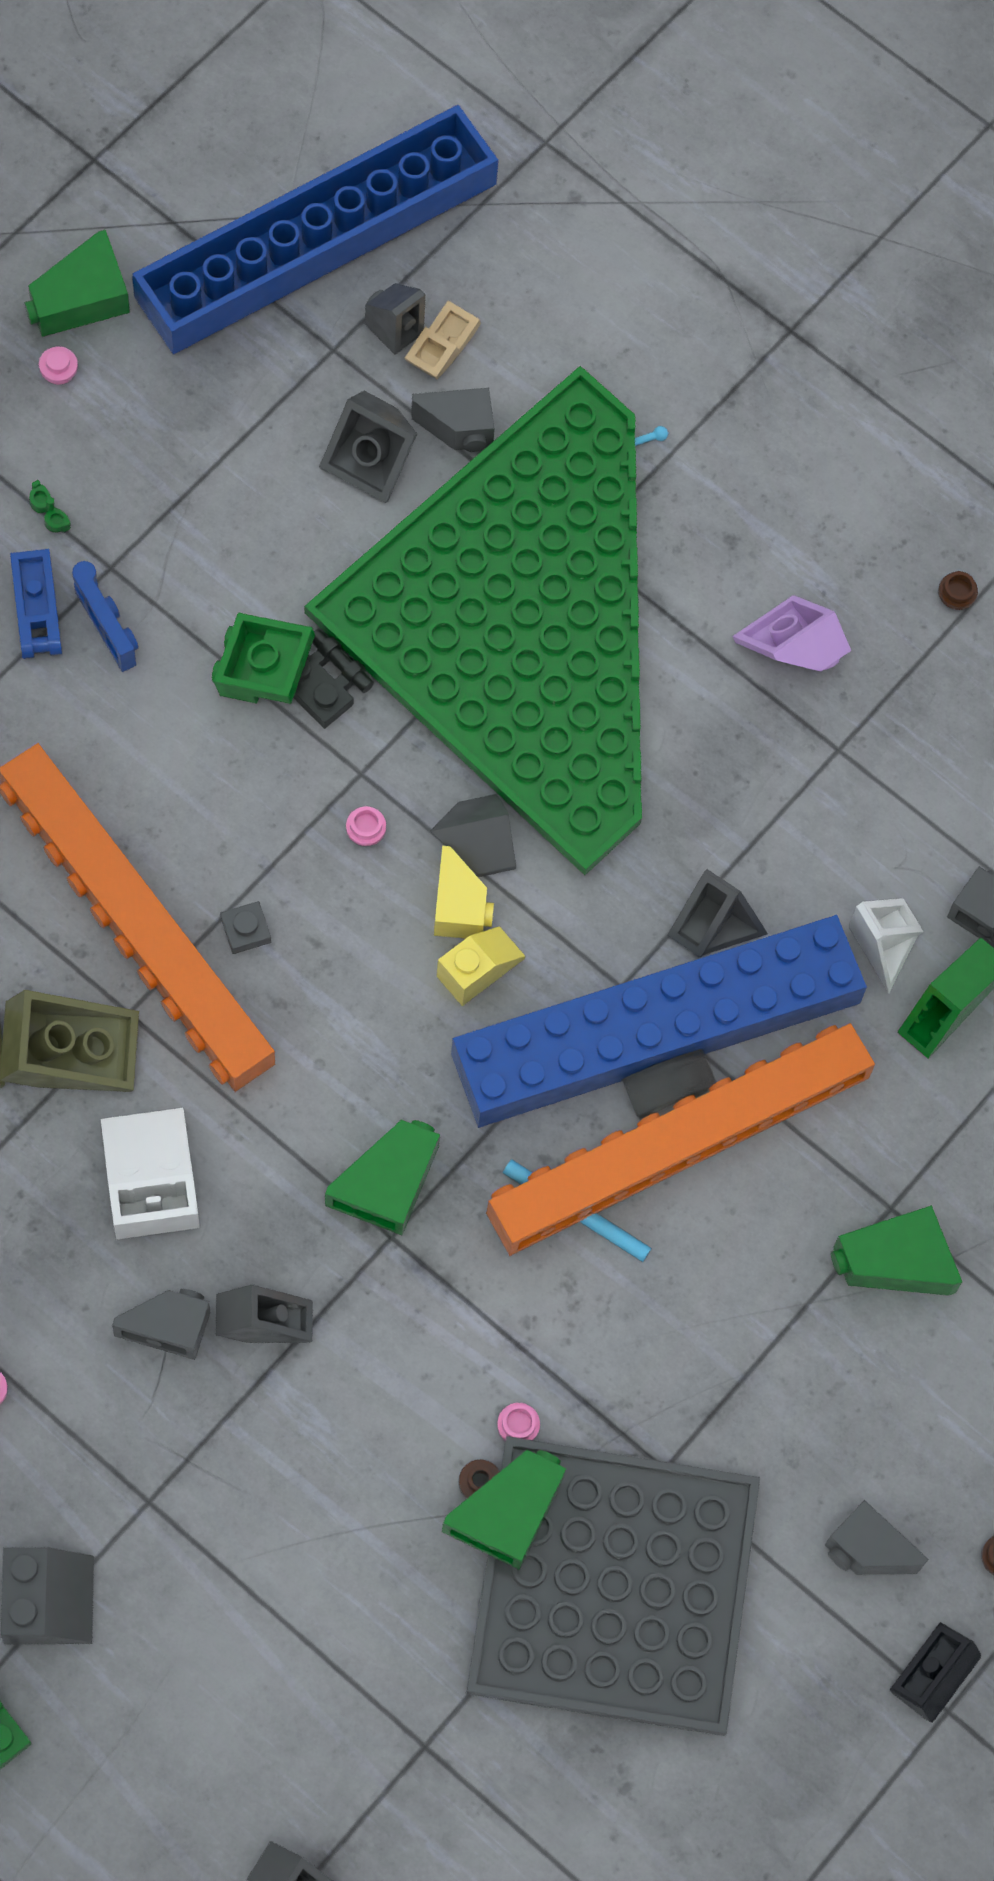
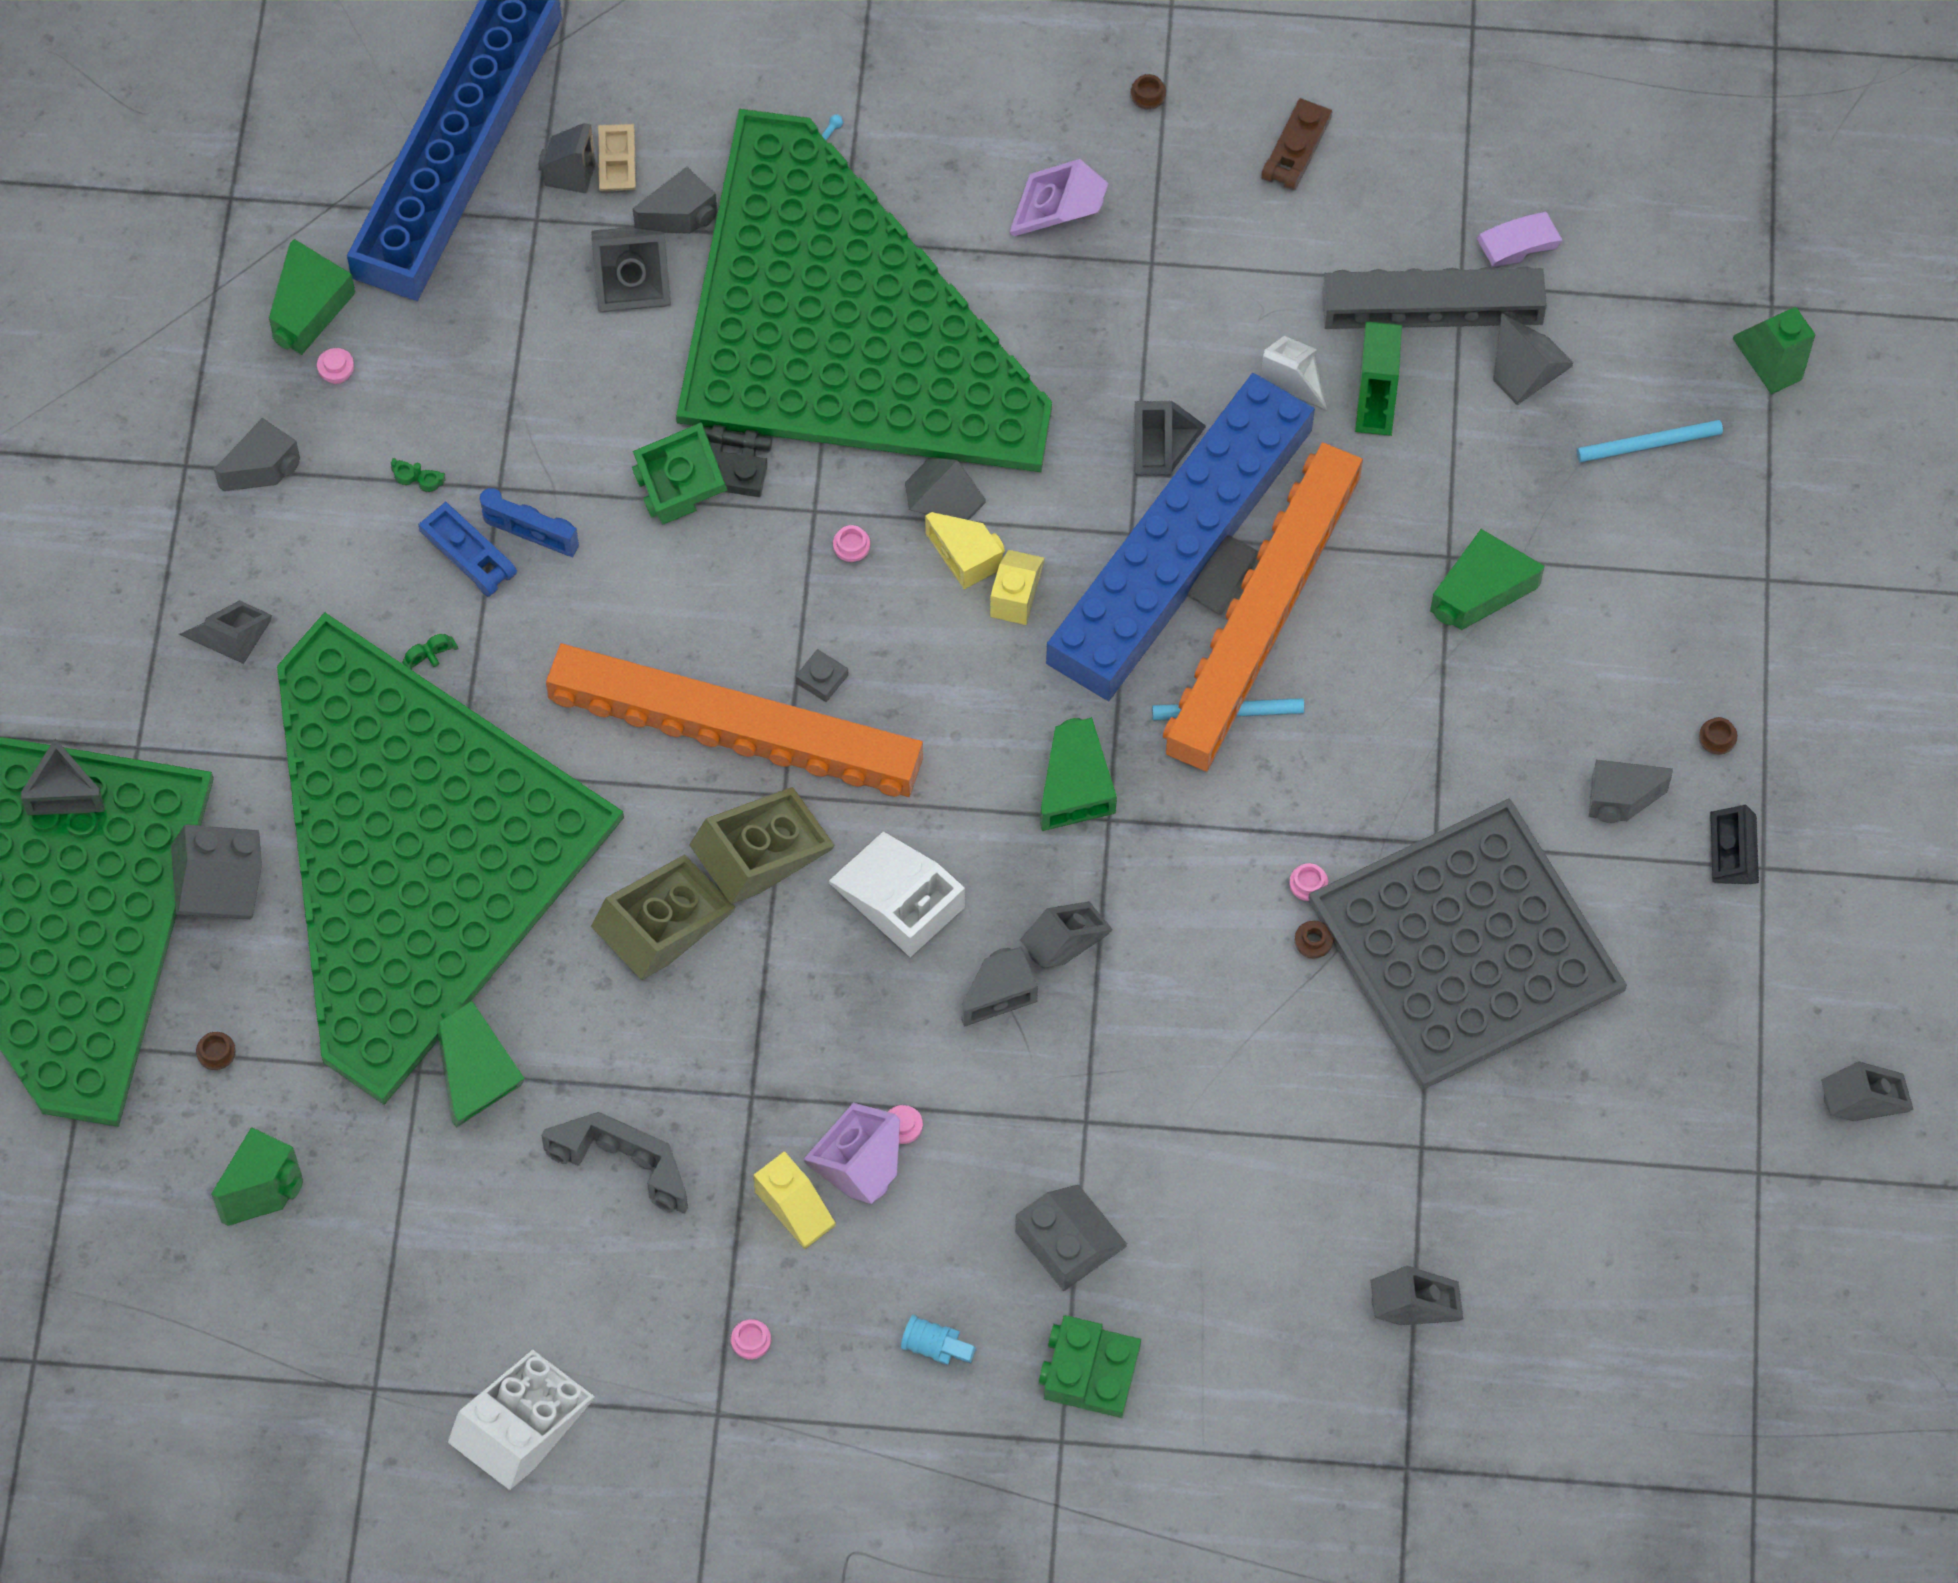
camera: 30 degrees left, 5 degrees down
(508, 1508) = (1356, 938): green slope -> none

